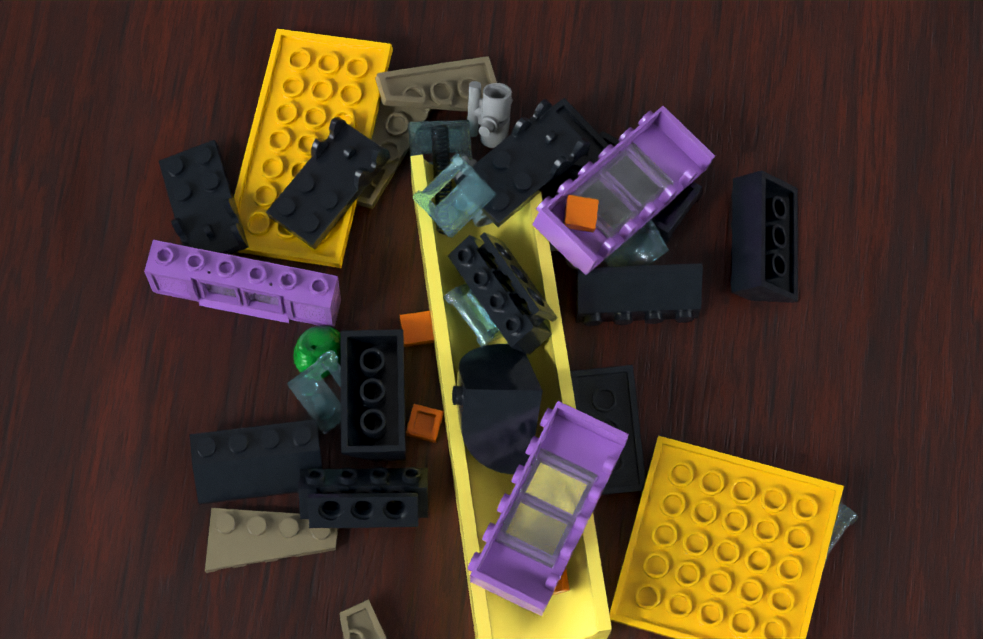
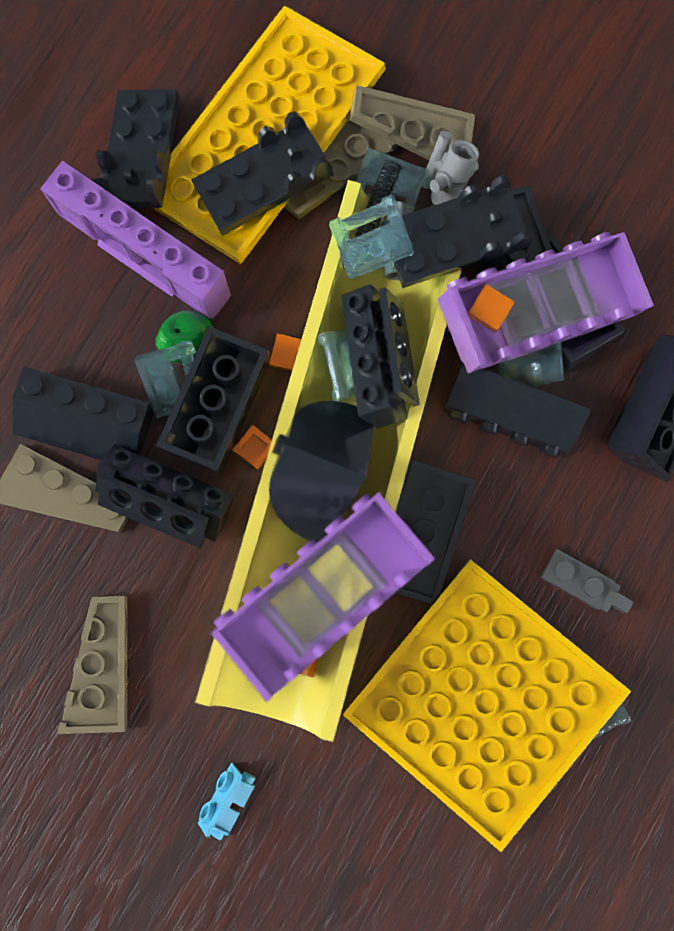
camera: 25 degrees right, 10 degrees up
(765, 418) = (584, 583): none -> dark grey hinge

